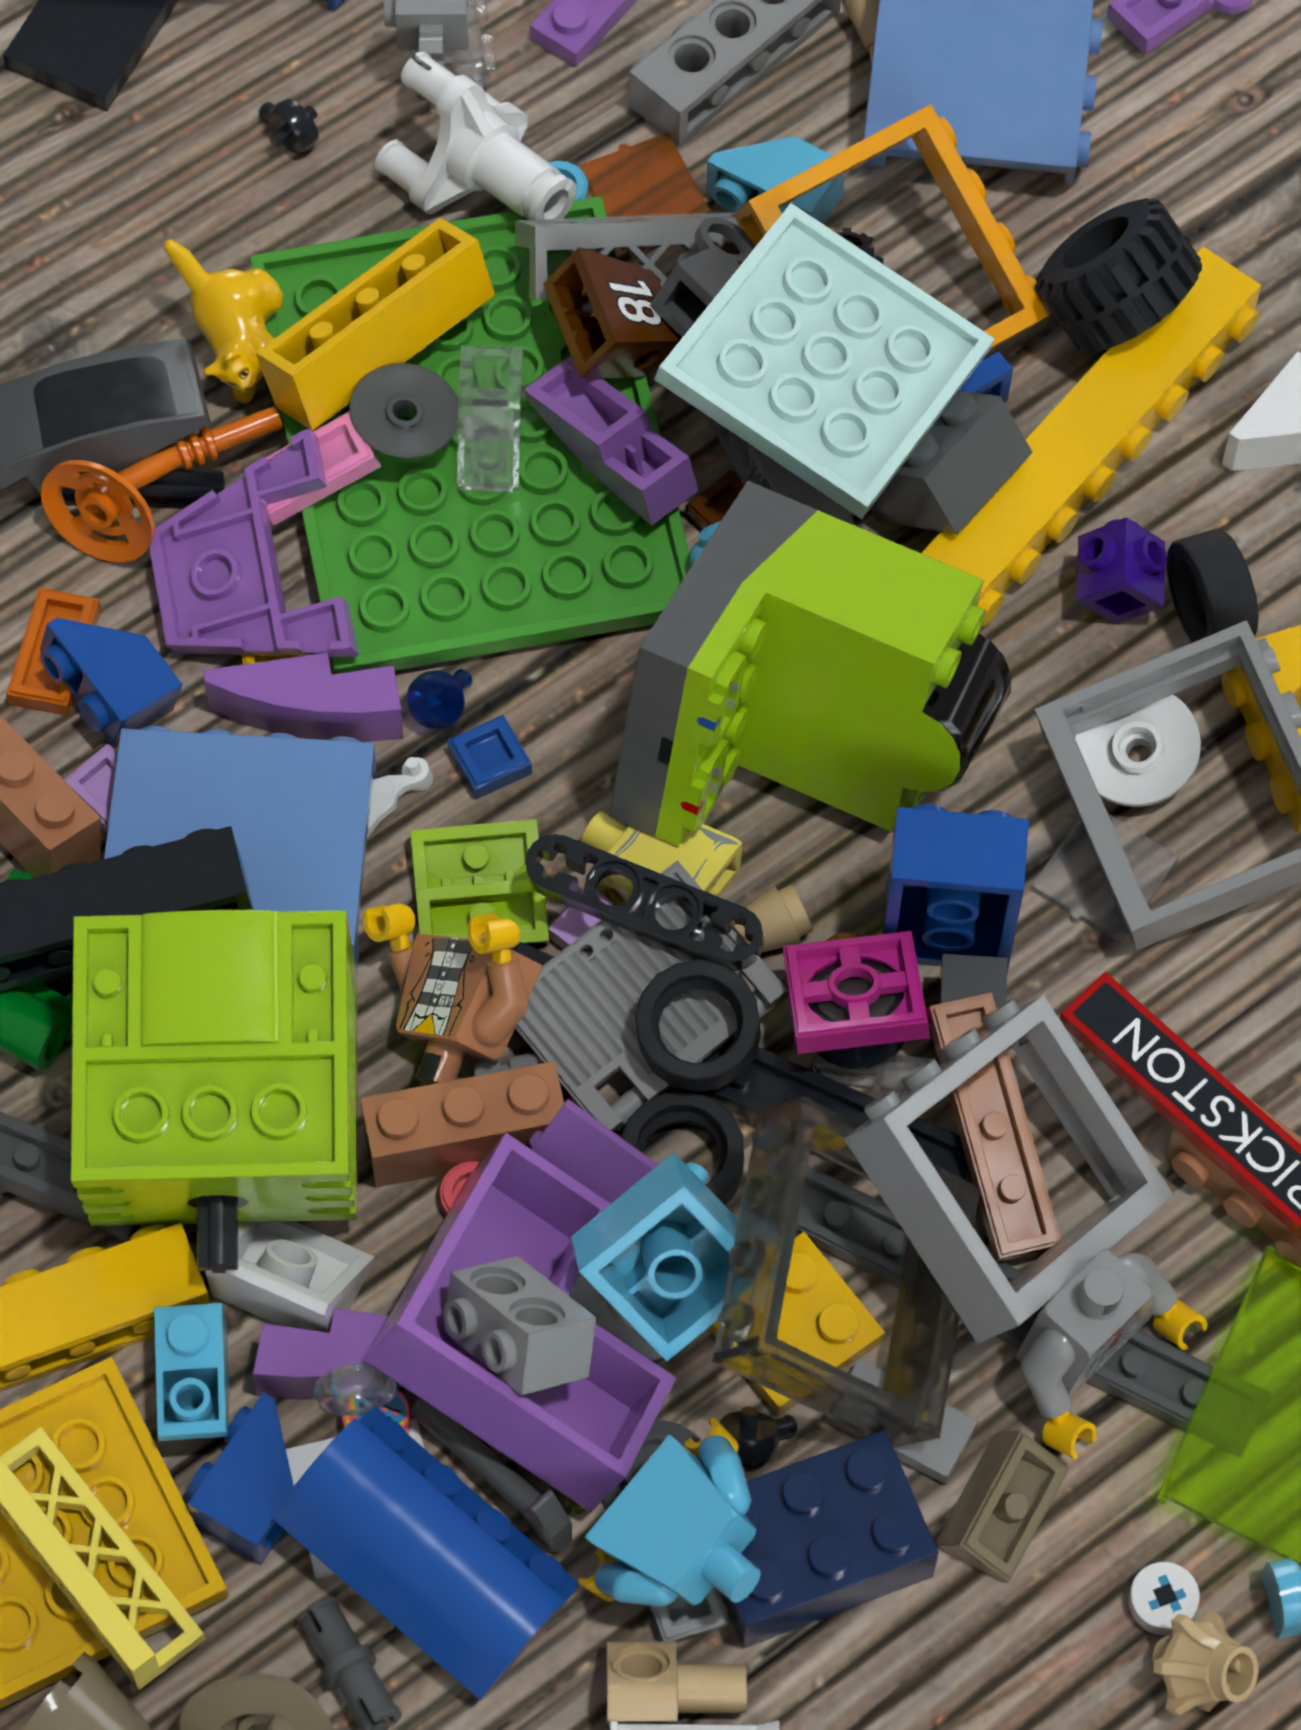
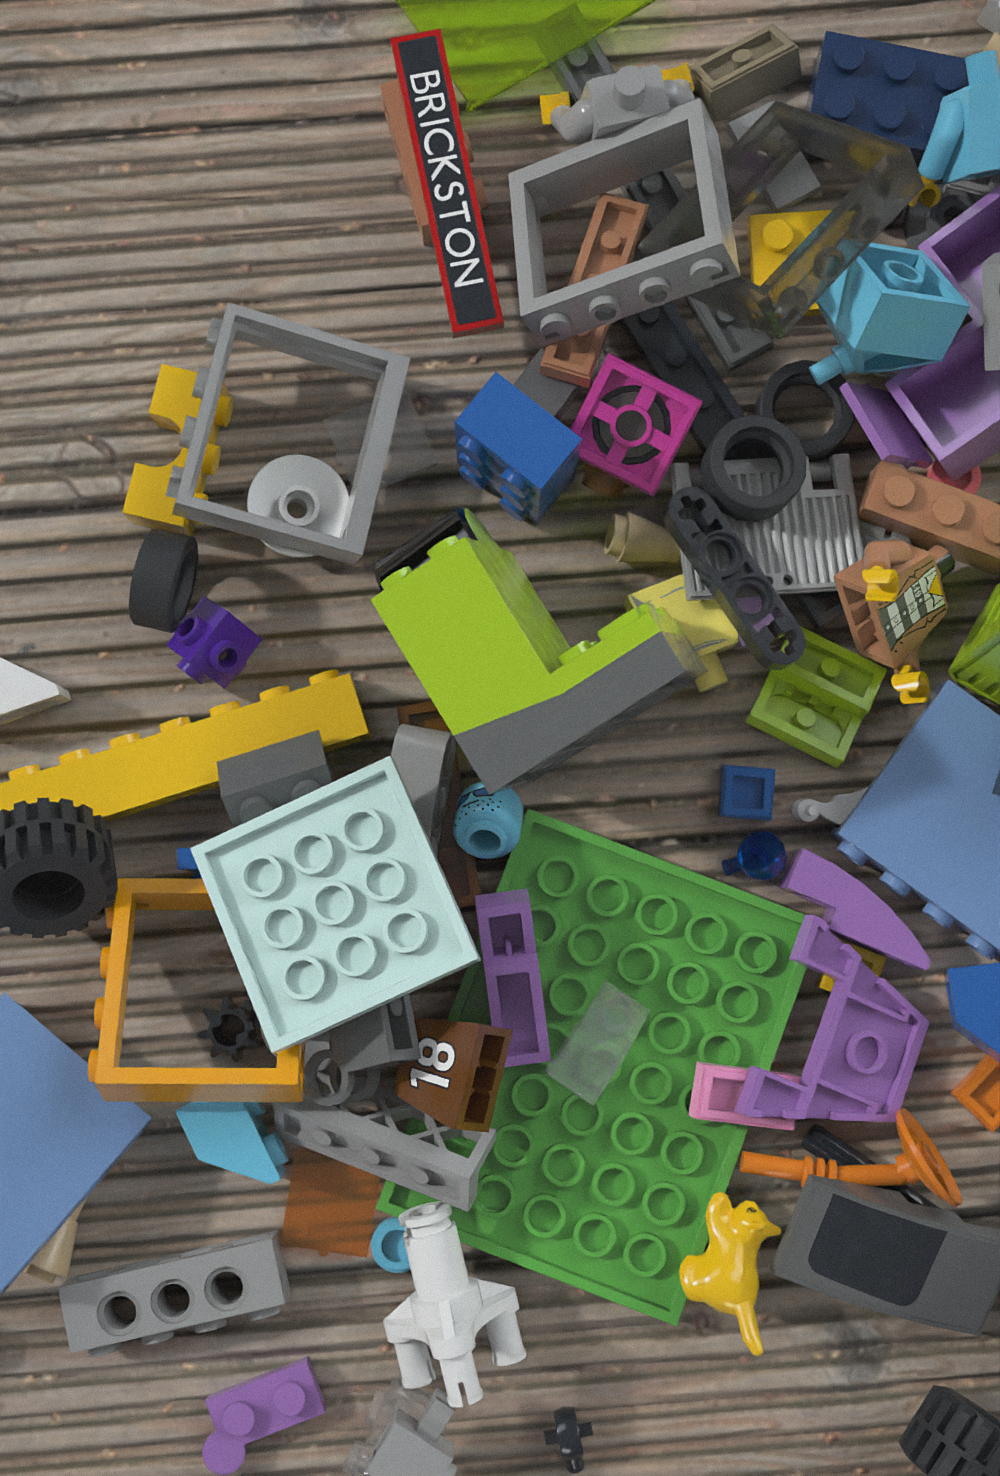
camera: 150 degrees left, 20 degrees up
(376, 322) = (633, 1182): yellow brick -> none
(406, 392) = (663, 1120): dark grey piece -> none

